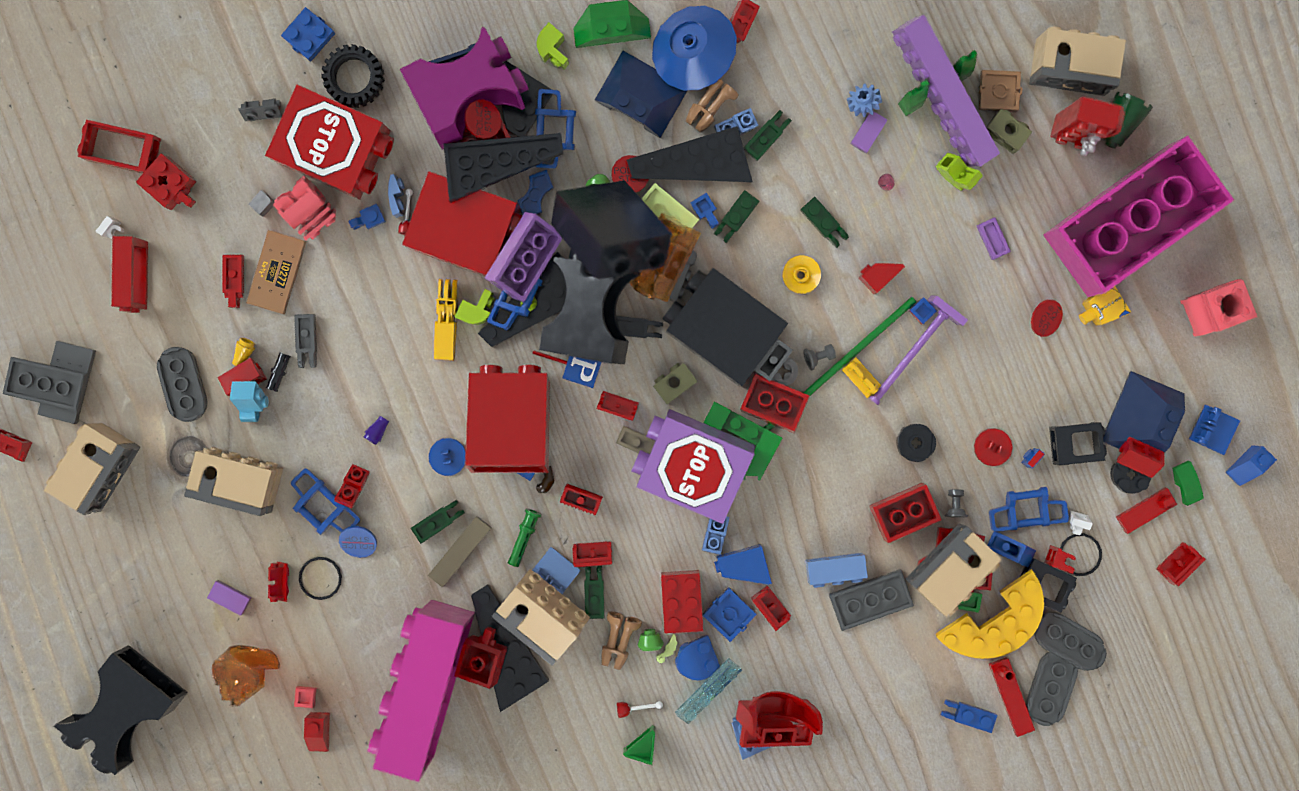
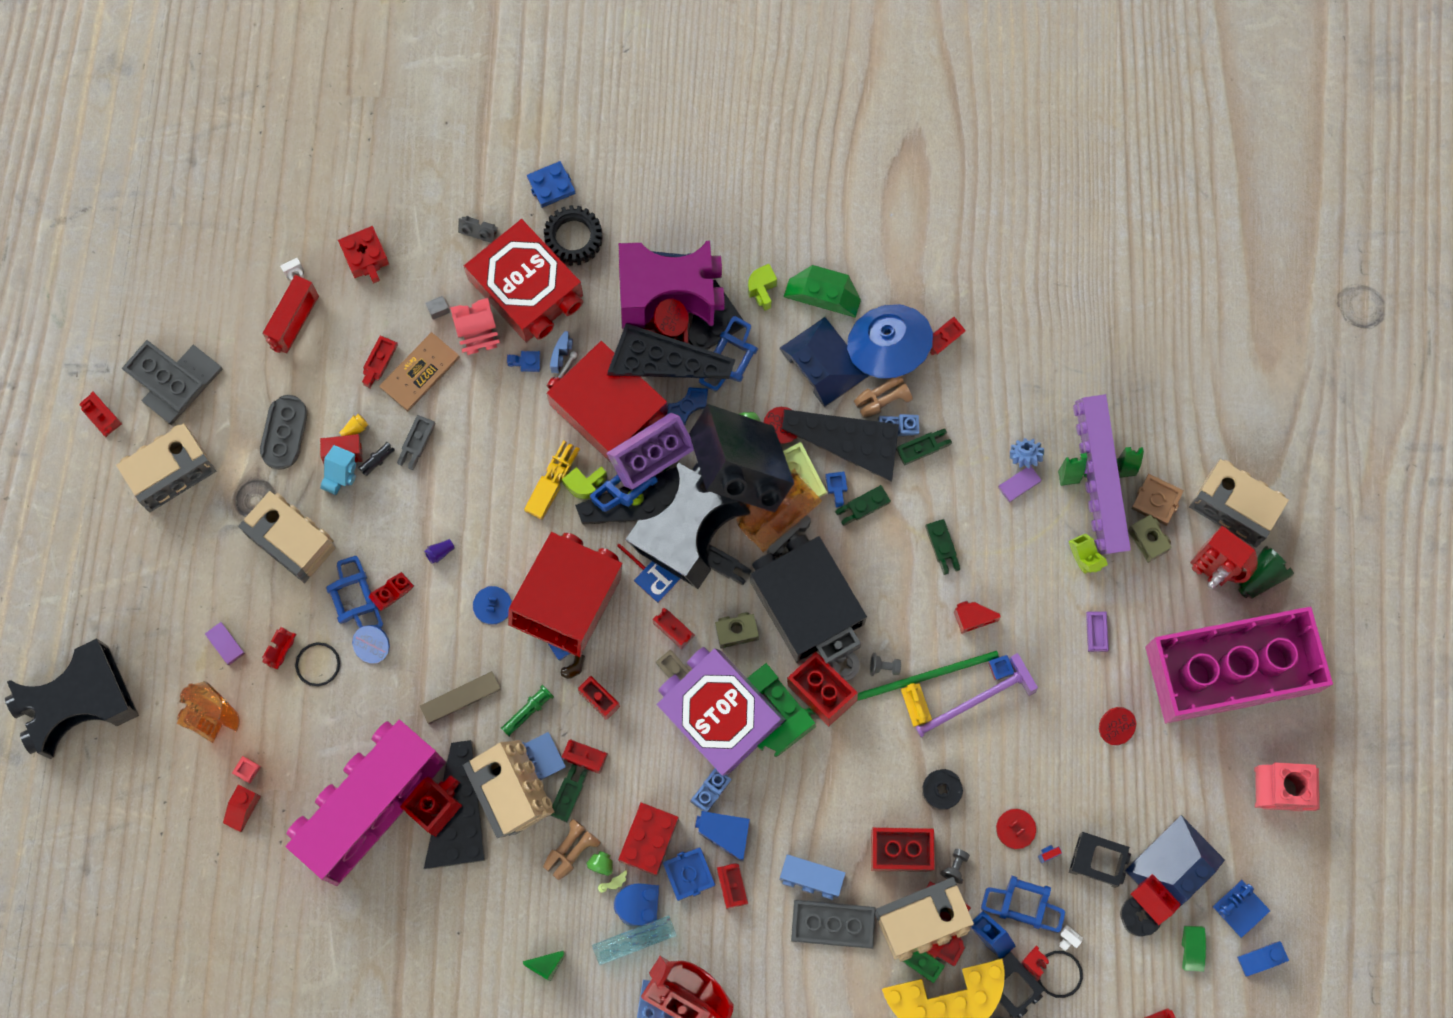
camera: 20 degrees right, 15 degrees down
(89, 135) = (318, 182): red window -> none
(435, 522) = (452, 659): dark green hinge -> none
(624, 709) = (544, 921): hinge -> none
(811, 274) = (905, 575): yellow dish -> none
(886, 182) = (1016, 535): clear pink hinge -> none
(1104, 308) = (1177, 740): yellow torso -> none
(1146, 510) = (1142, 958): red hinge -> none

